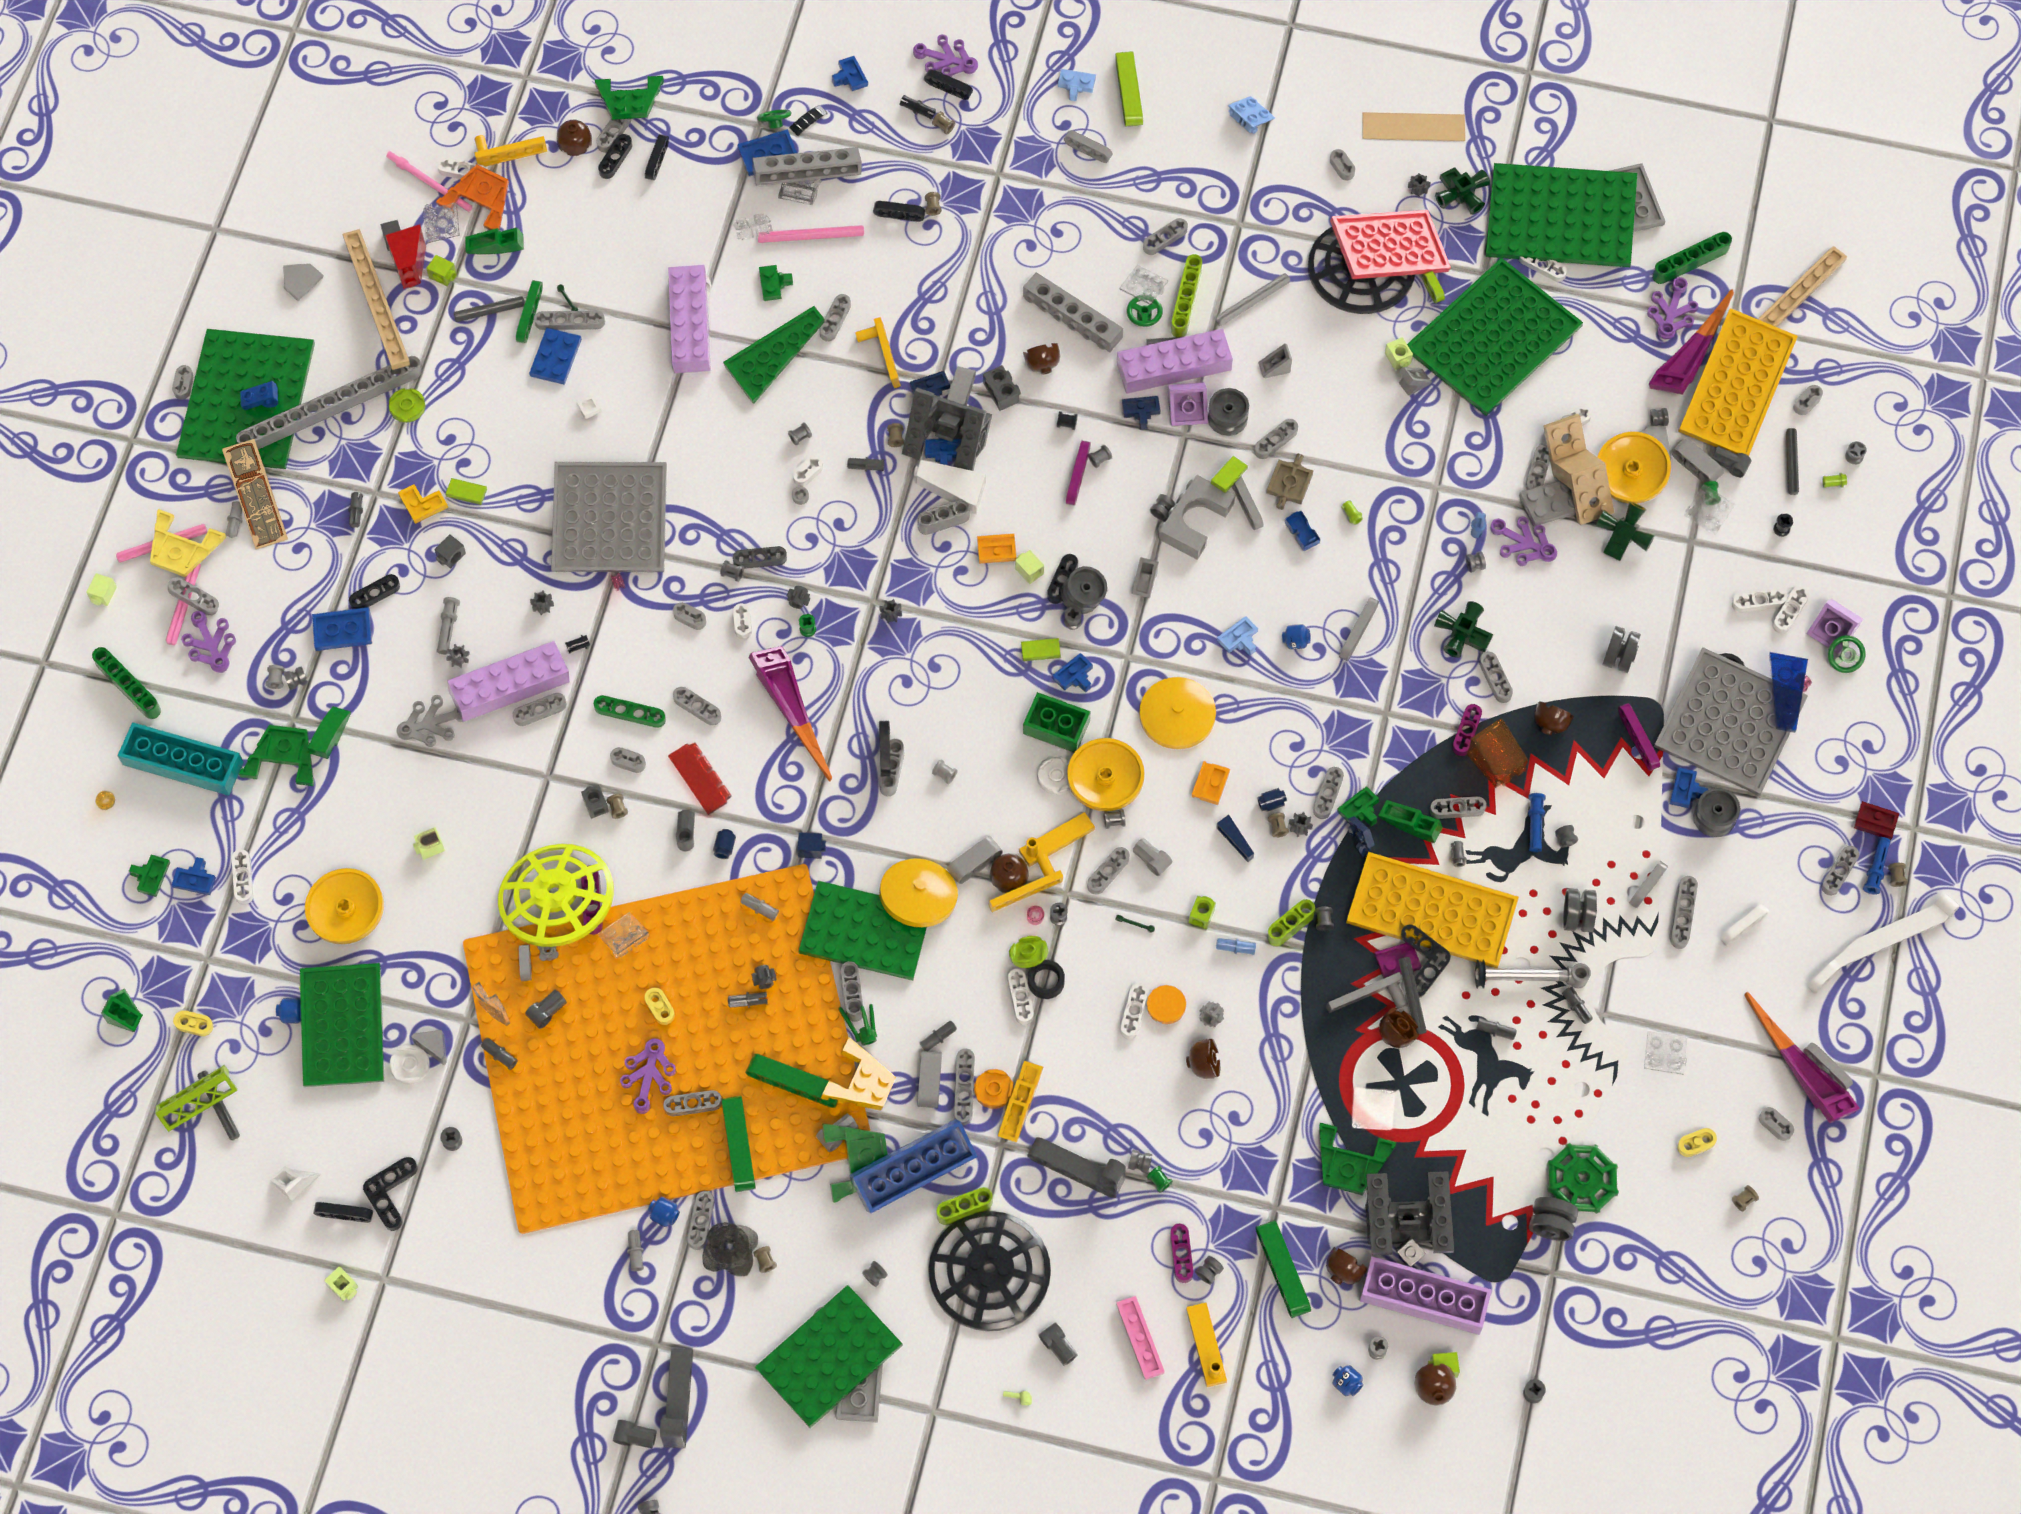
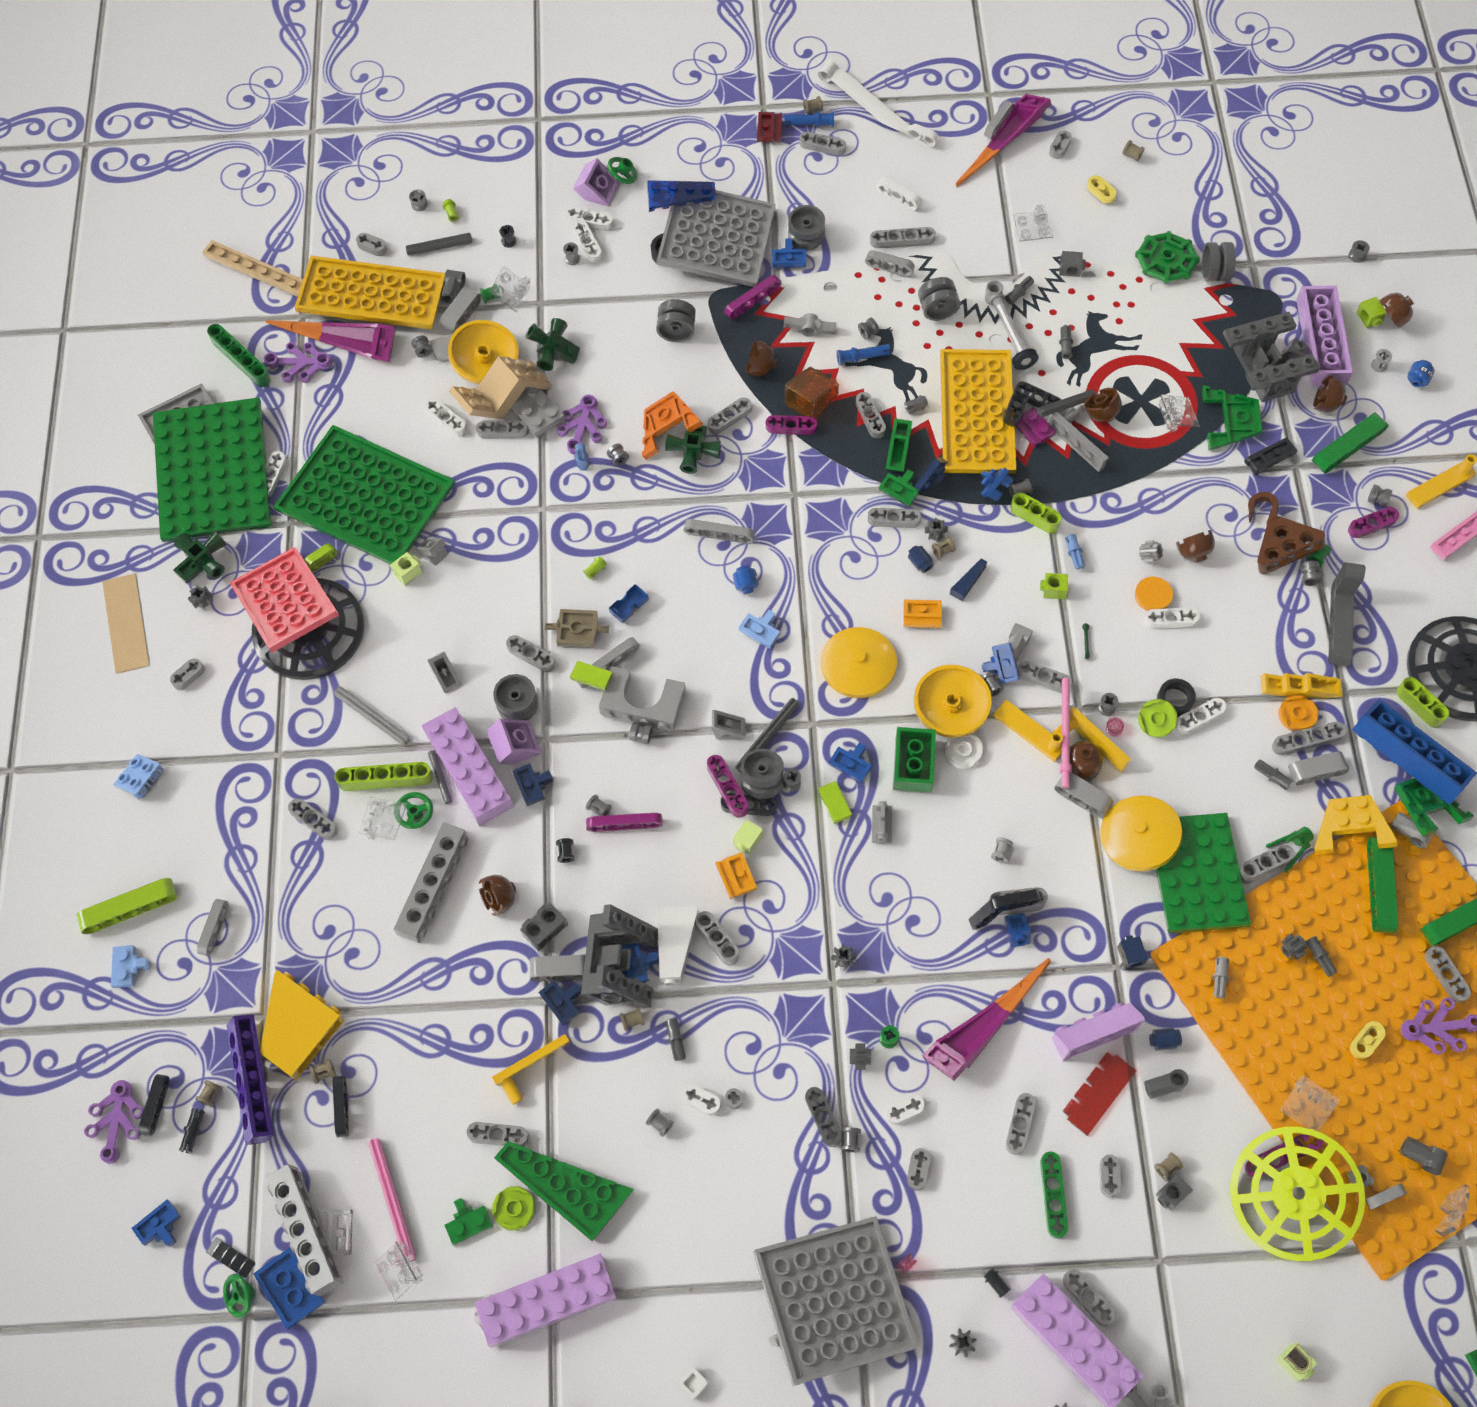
camera: 105 degrees left, 0 degrees up
(751, 788) = (1097, 1030): none -> lavender slope
(770, 316) = (513, 1208): none -> lime tile
(866, 759) = (1018, 929): none -> blue bracket
(943, 149) = (249, 1079): none -> dark purple brick
(979, 191) = (296, 1025): none -> yellow slope
(1002, 845) = (1065, 766): none -> bright pink bar
(1005, 682) = (882, 823): none -> light grey hinge
(1083, 560) = (726, 786): none -> magenta beam
(1130, 617) = (772, 728): none -> dark grey axle
(1132, 832) = (1003, 663): none -> hinge
(1184, 1157) = (1295, 537): none -> reddish brown piece
(1291, 1182) = (1271, 456): none -> black plate
(1339, 899) = (1000, 477): none -> blue hips
(1505, 610) = (663, 416): none -> orange wing
(1587, 781) = (809, 325): none -> light grey pin
(1597, 1069) = (1071, 263): none -> dark grey brick
(1743, 581) = (571, 252): none -> flat silver bush

